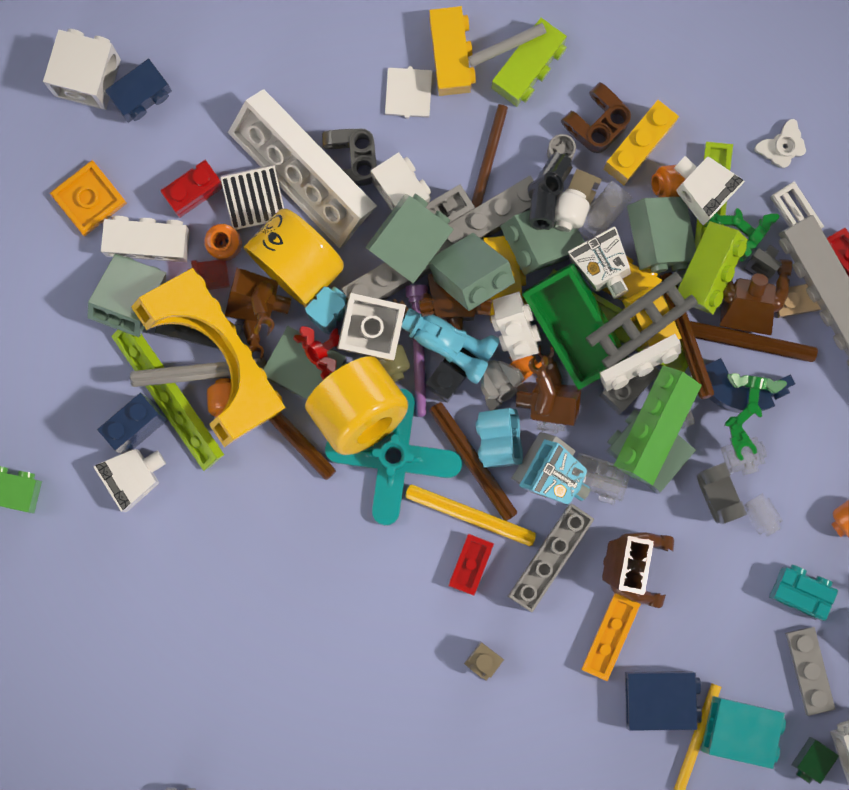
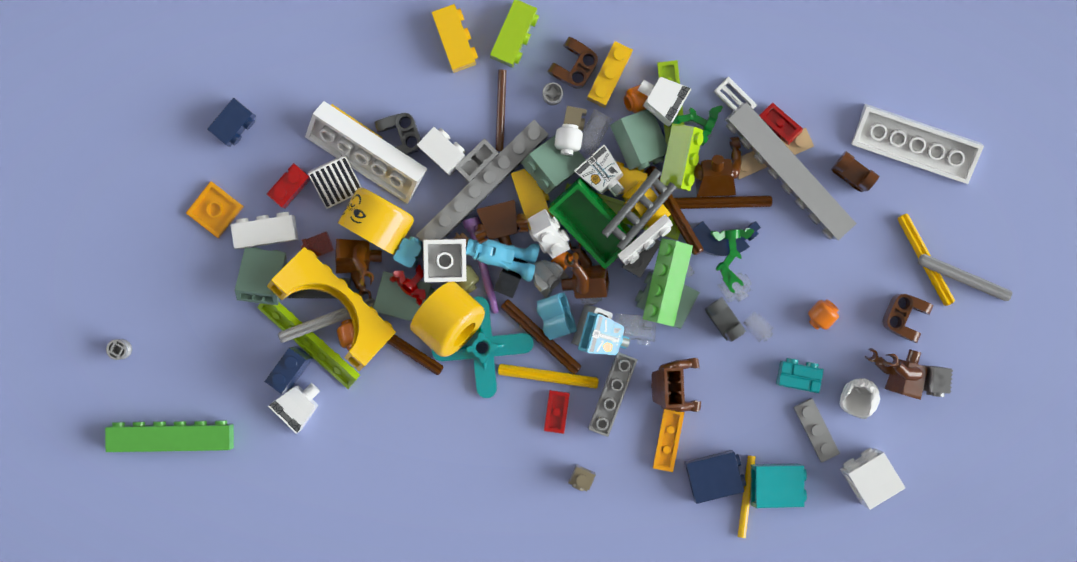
camera: 10 degrees left, 5 degrees up
(82, 68) = (186, 116): white brick -> none
(220, 233) = (314, 220): orange head -> none
(408, 92) = (430, 75): white piece -> none
(410, 237) = (457, 188): sand green brick -> none
(471, 271) = (507, 202): sand green brick -> none
(507, 45) = (494, 25): light grey bar -> none
(545, 189) = (547, 128): black piece -> none
(764, 262) = (719, 143): dark grey tile -> none
(774, 149) = (708, 56): white animal -> none
(814, 761) = (832, 494): dark green brick -> none

